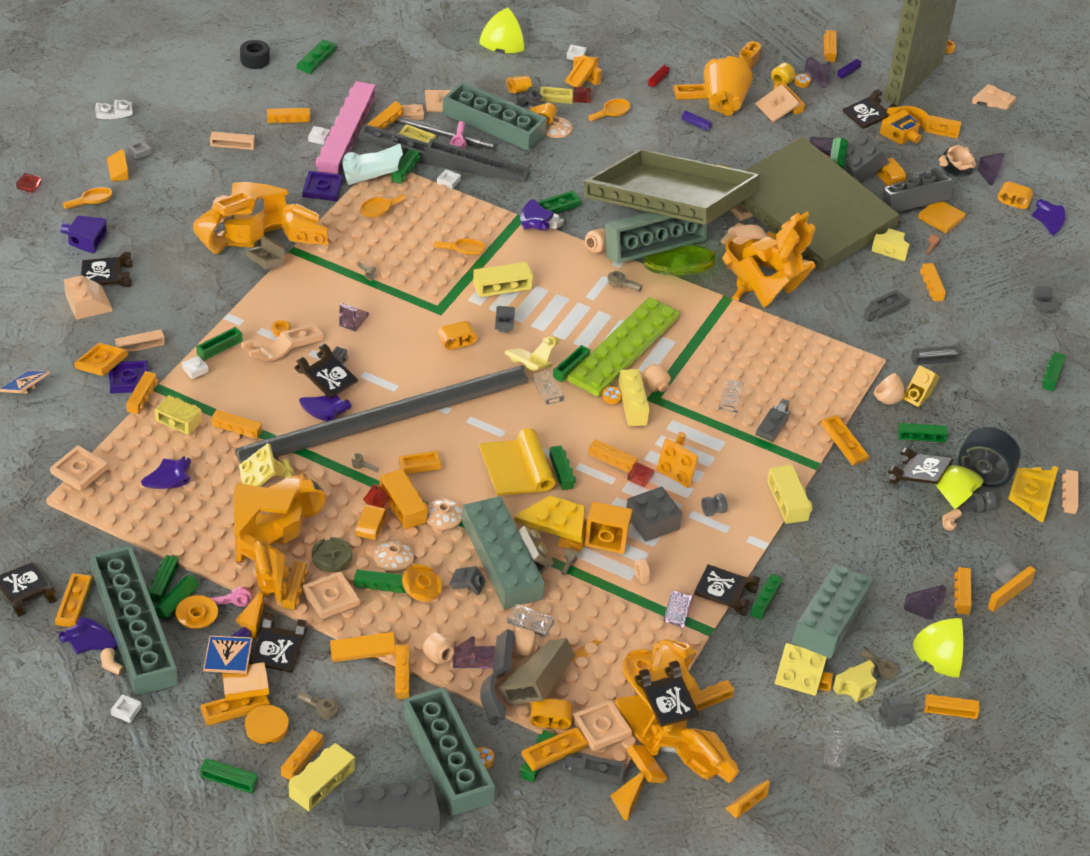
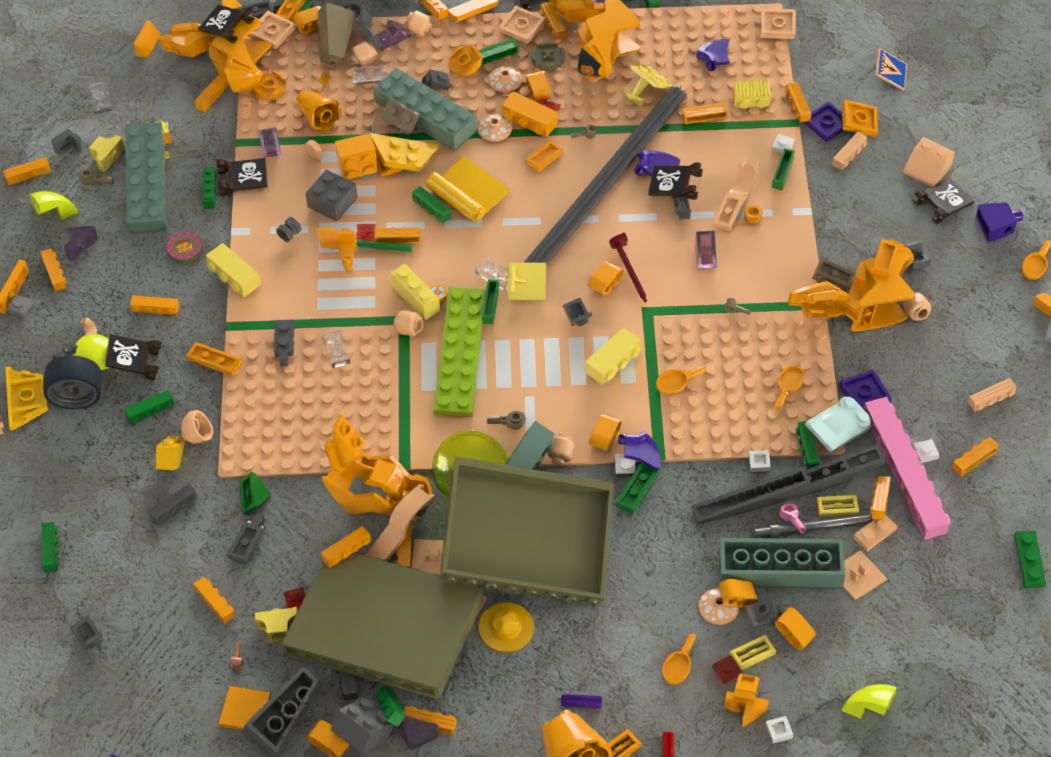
camera: 155 degrees right, 10 degrees up
(183, 239) = (920, 259): none -> dark grey bracket
(421, 357) = (617, 242): none -> dark red piece
(553, 237) = (605, 432): none -> light orange beam
(613, 599) = (319, 110): none -> light orange cone
(640, 460) = (384, 245): none -> green bar
(821, 247) = (346, 546): none -> light orange piece
(821, 553) = (184, 247): none -> olive tile
(865, 332) = (252, 492): none -> green slope
(869, 253) = (294, 598): none -> clear red plate
(876, 512) = (155, 305): none -> light orange piece

